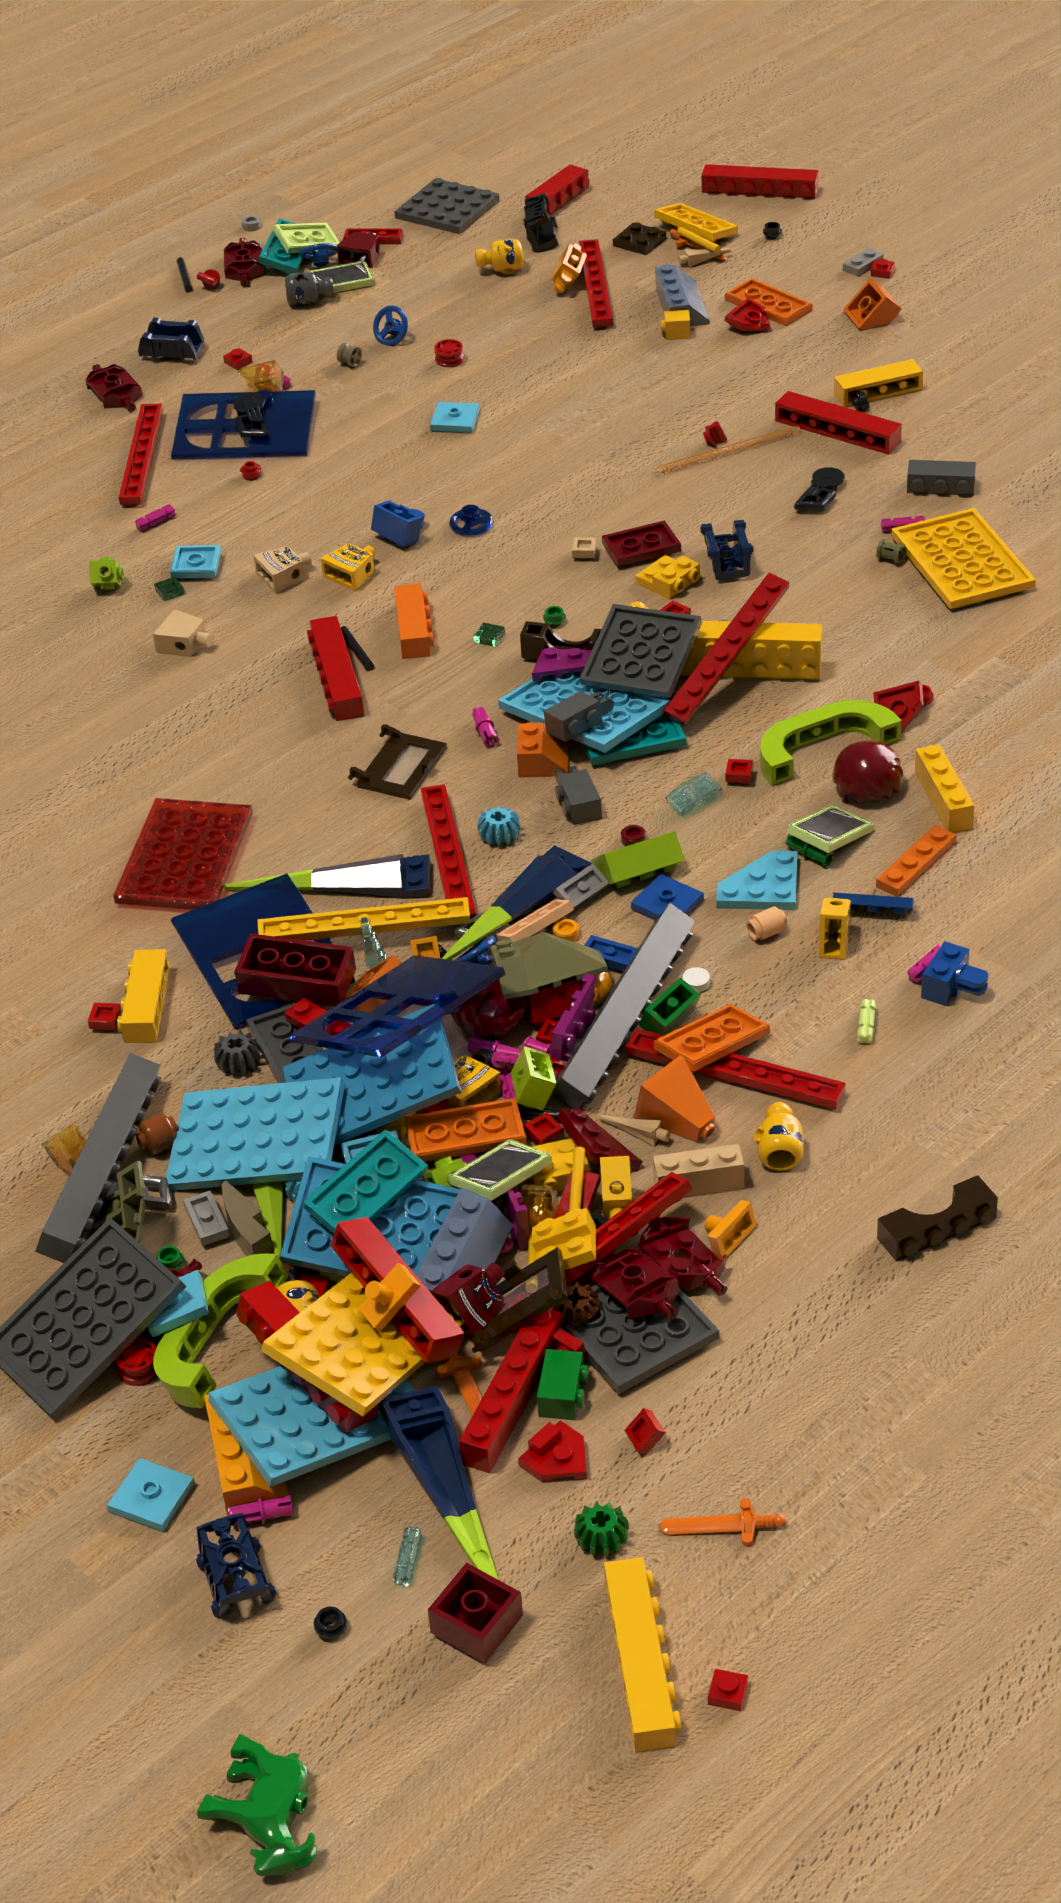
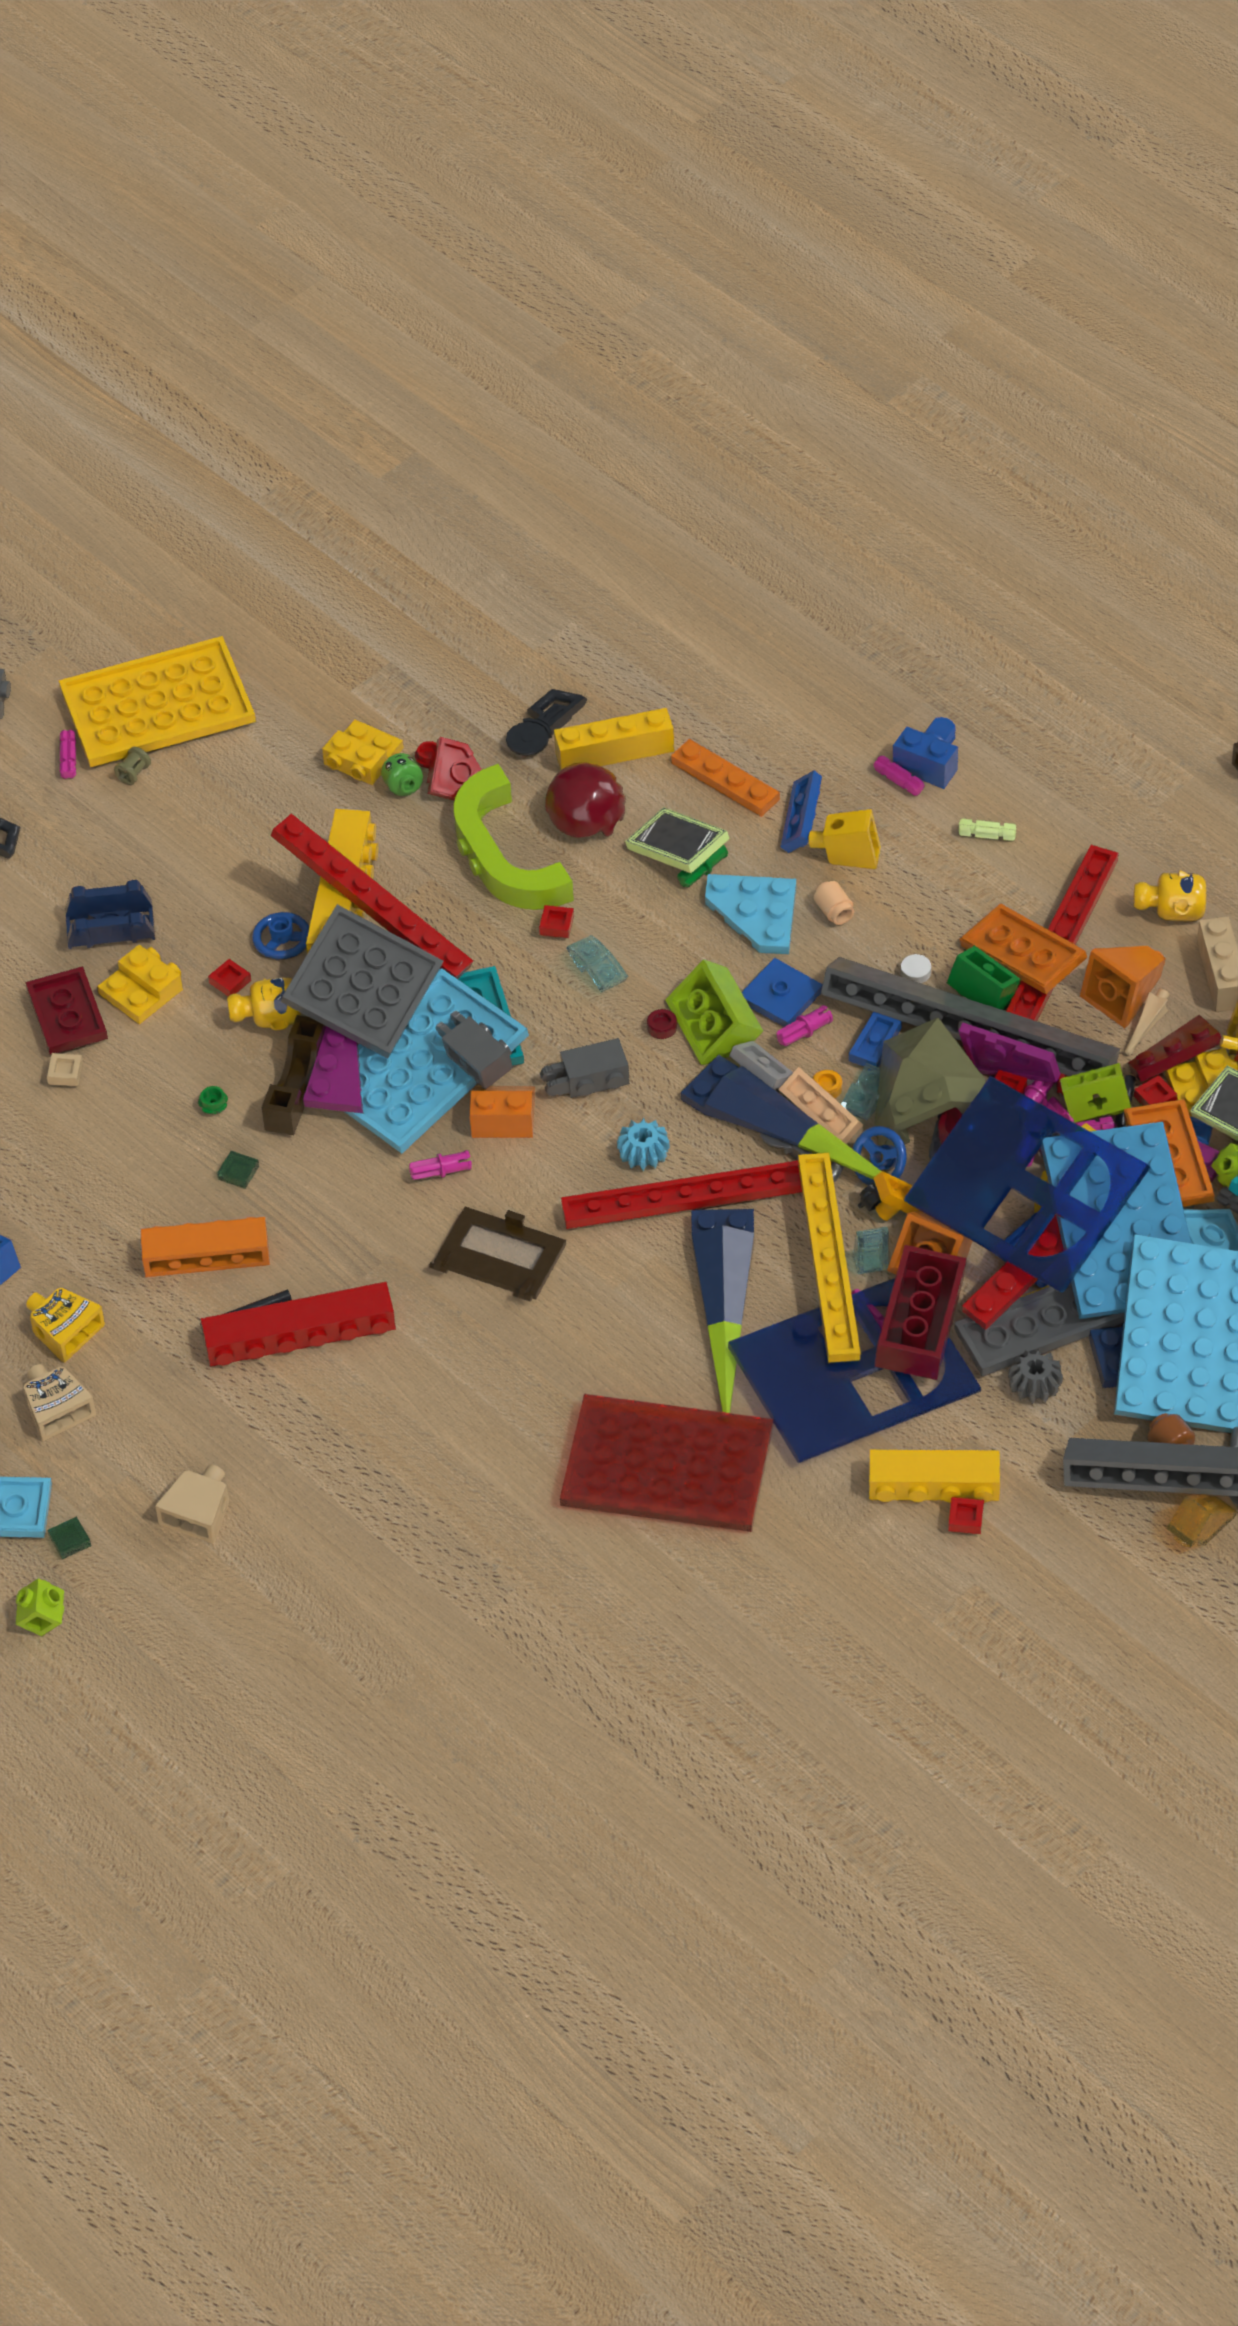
camera: 90 degrees left, 10 degrees up
(626, 912) = (804, 1026): none -> dark pink axle
(892, 675) = (402, 774): none -> bright green head
(921, 661) = (360, 751): none -> yellow plate
(967, 757) = (534, 734): none -> black piece

